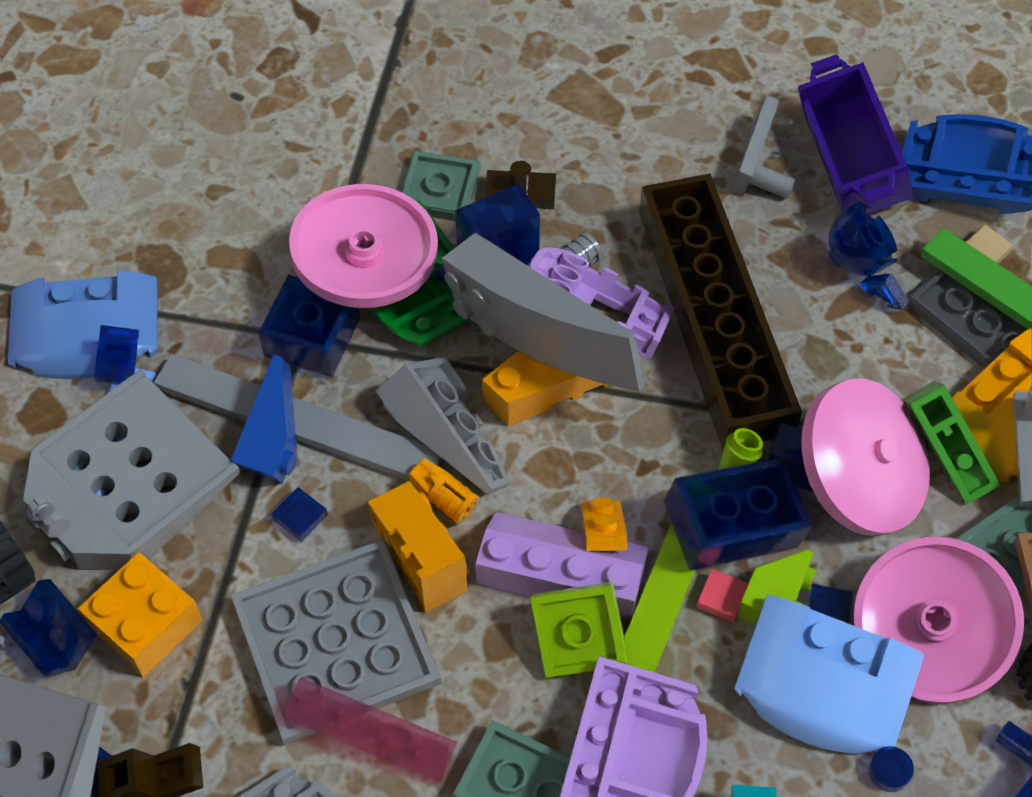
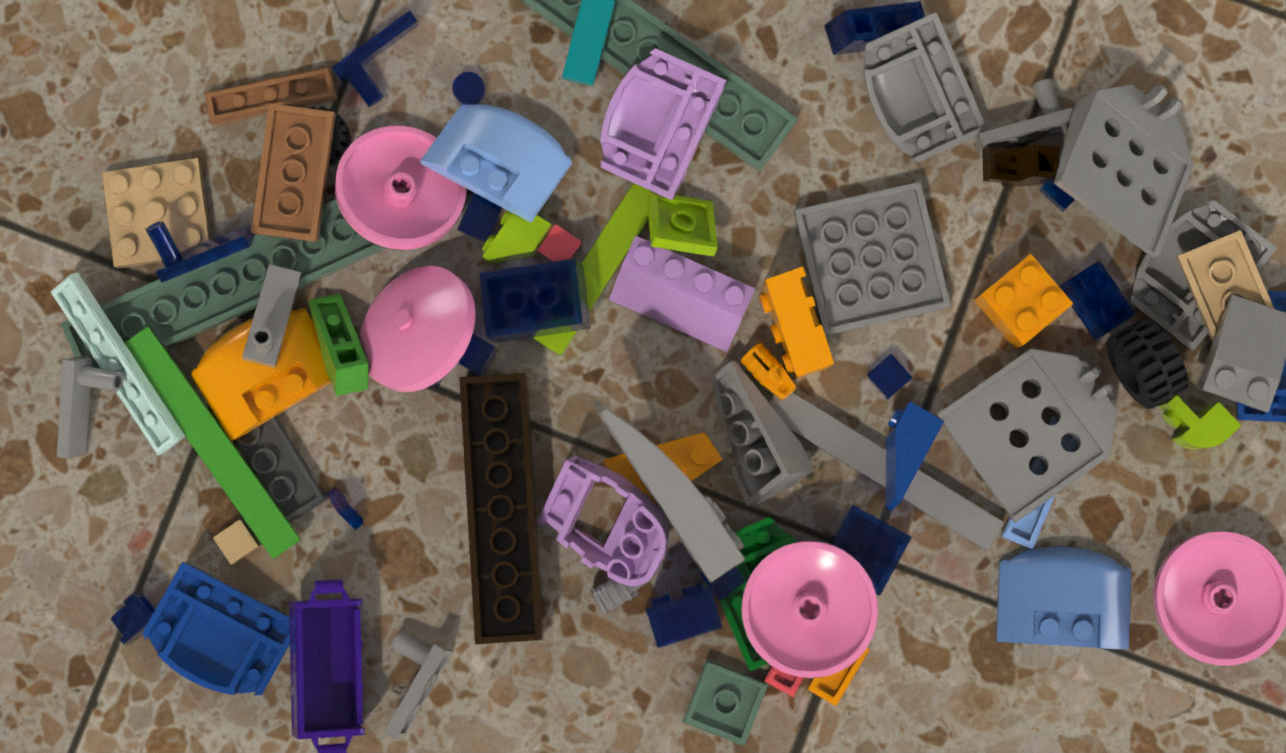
camera: 170 degrees left, 25 degrees up
(116, 354) = (1035, 544): clear blue panel -> none
(370, 730) = (854, 176): clear pink plate -> none
(538, 186) = (650, 684): dark brown tile -> none
(603, 525) = (644, 313): light orange plate -> none
(741, 448) = (517, 356): lime cone -> none
(860, 242) = (352, 553): clear blue cylinder -> none

